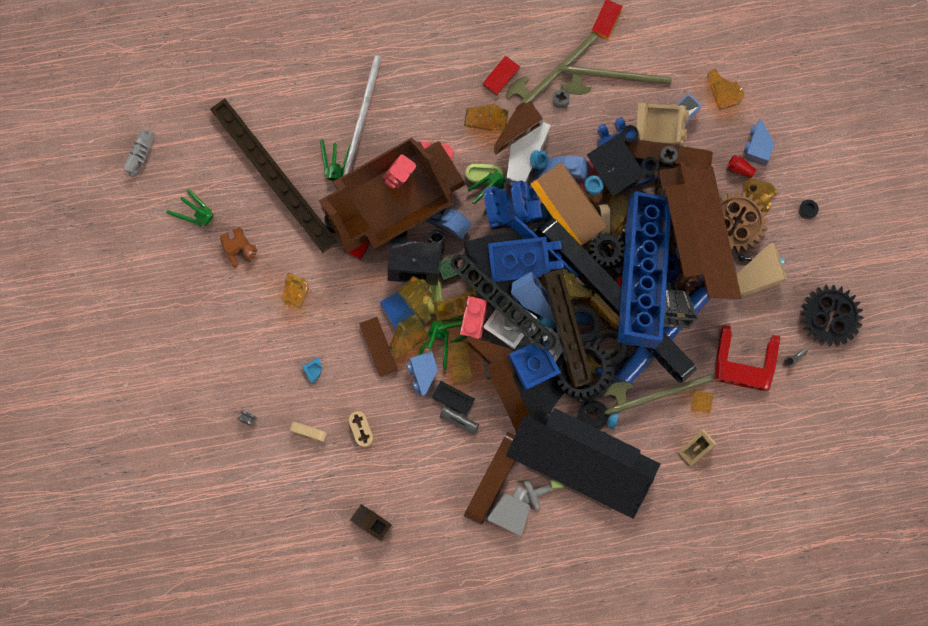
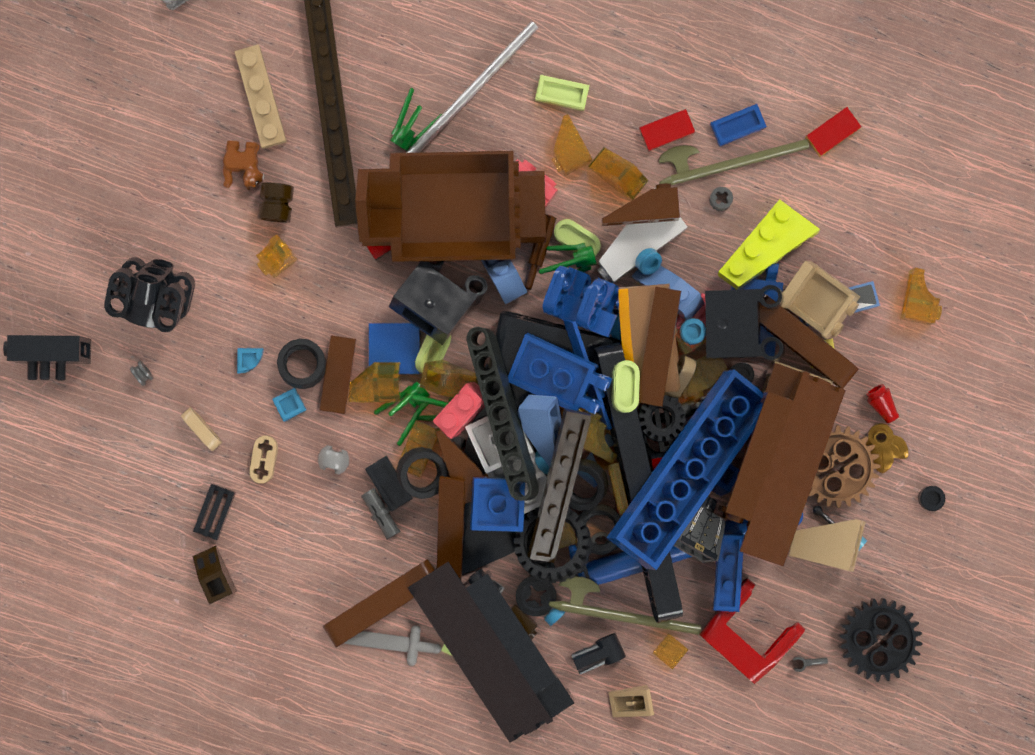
camera: 35 degrees right, 10 degrees up
(175, 437) = (46, 351): none -> black piece
(203, 215) = (222, 103): green plant -> none
(225, 198) = (260, 96): none -> tan plate
(225, 360) = (150, 293): none -> black piece
(273, 256) = (275, 202): none -> dark brown wheel
(344, 339) = (293, 346): none -> black tyre
(344, 466) = (206, 532): none -> black tile
(357, 384) = (289, 404): none -> dark azure tile
(399, 172) = (471, 188): coral brick -> none
(407, 402) = (332, 459): none -> light grey piece
(417, 296) = (410, 346): clear yellow arch -> none
(420, 89) = (562, 92): none -> yellowish green tile
(423, 370) = (372, 434): medium blue slope -> none
(446, 119) = (569, 149): none -> clear yellow slope
(446, 270) = (468, 323): tile -> none
(458, 376) = (405, 462): none -> black tyre
(465, 197) = (539, 252): none -> reddish brown axle
(511, 511) = (377, 653): light grey torso -> none
(544, 48) = (738, 125): none -> blue tile
(572, 241) = (625, 386): none -> yellowish green tile
(577, 88) = (748, 196): olive piece -> none
(578, 204) = (659, 346): none -> reddish brown piece
(607, 109) = (767, 244): none -> neon yellow wing
(658, 427) = (604, 651): none -> black piece
(670, 149) = (809, 340): dark grey bush -> none
(710, 327) = (728, 574): none -> blue tile
(760, 146) = (921, 391): medium blue slope -> none

